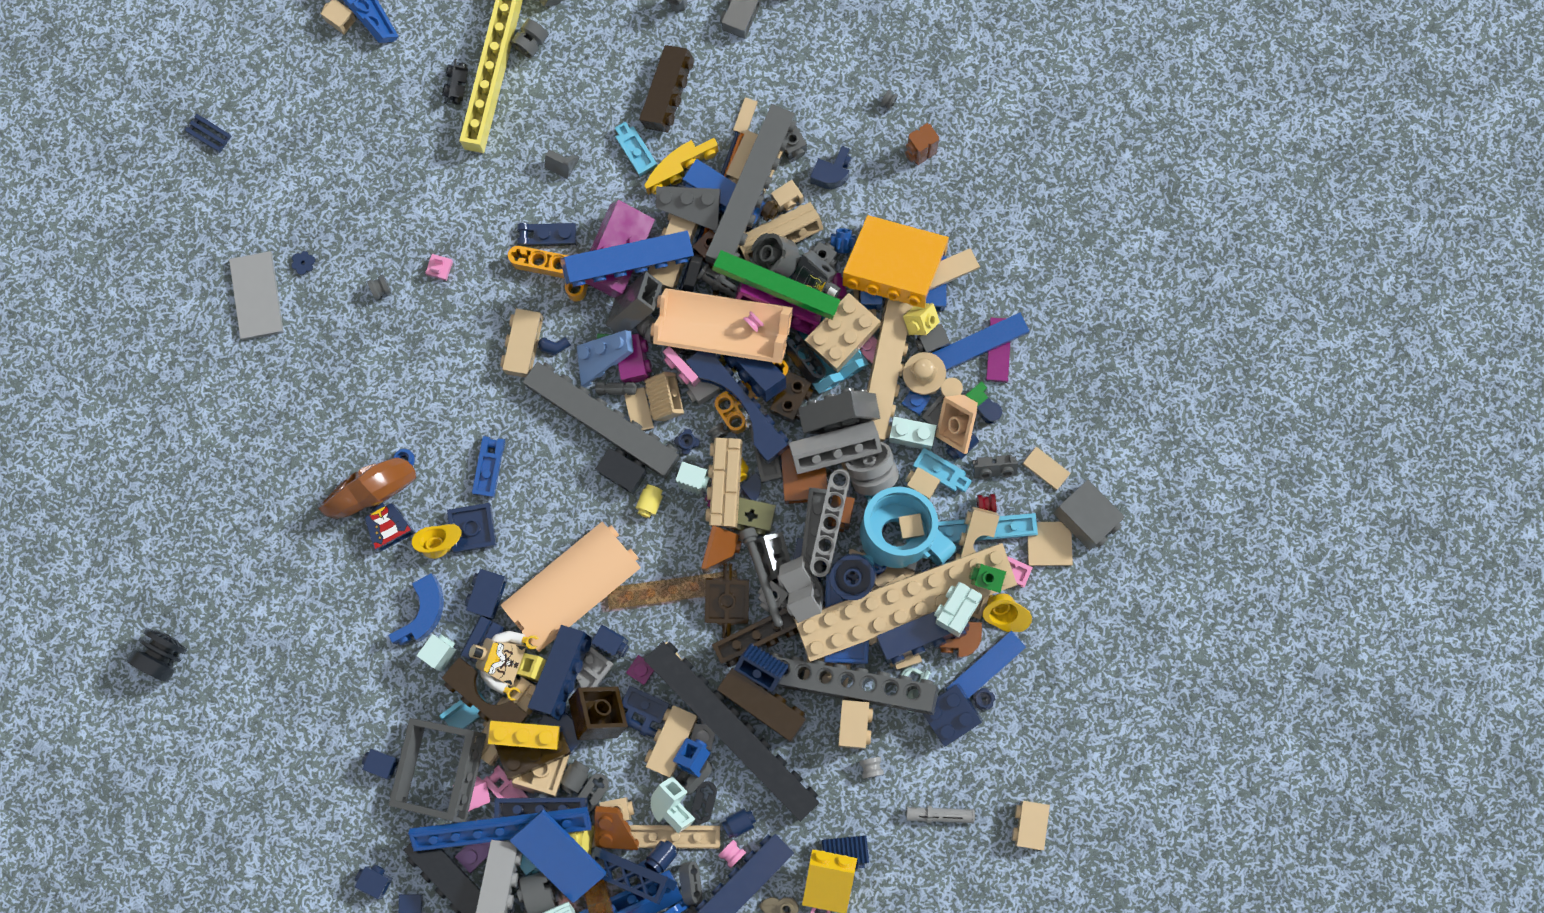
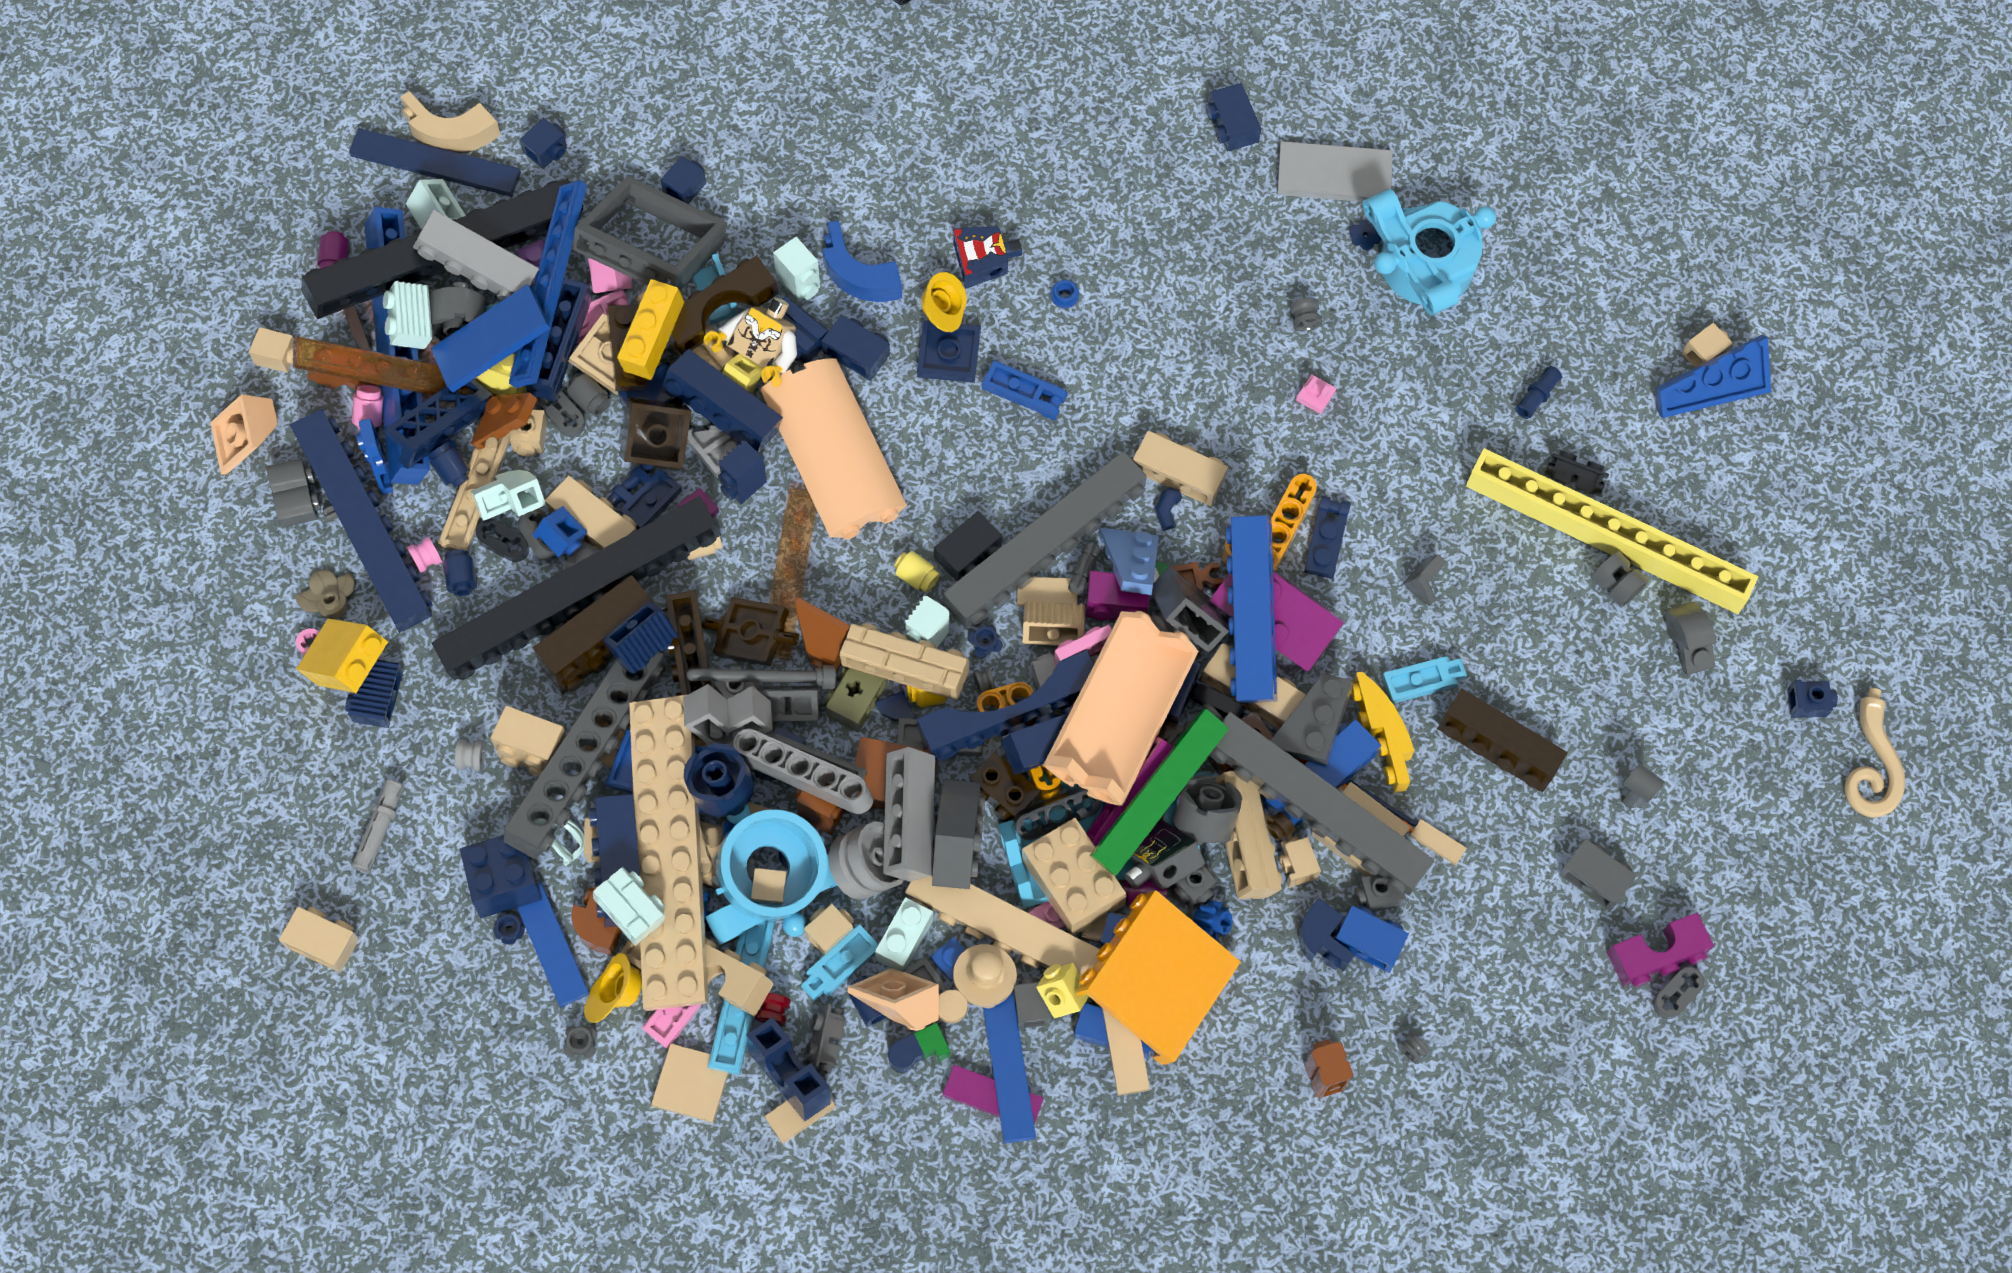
camera: 95 degrees right, 10 degrees down
(194, 124) = (1589, 148): dark blue tile -> none
(228, 376) = (1233, 117): none -> dark blue brick
(321, 229) = (1409, 272): none -> medium azure piece
(368, 487) = (1034, 239): dark orange piece -> none
(400, 119) = (1538, 392): none -> dark blue pin
(601, 314) = (1199, 577): none -> dark orange plate
(690, 883) = (406, 496): dark grey beam -> none
(753, 321) = (1114, 746): bright pink bush -> none
(825, 139) = (1372, 938): none -> blue brick
(987, 577) = (661, 960): green brick -> none
(1024, 484) = (798, 1083): none -> dark blue arch
(1049, 620) = (576, 1033): none -> dark grey plate
(1089, 515) = (710, 1146): brick -> none

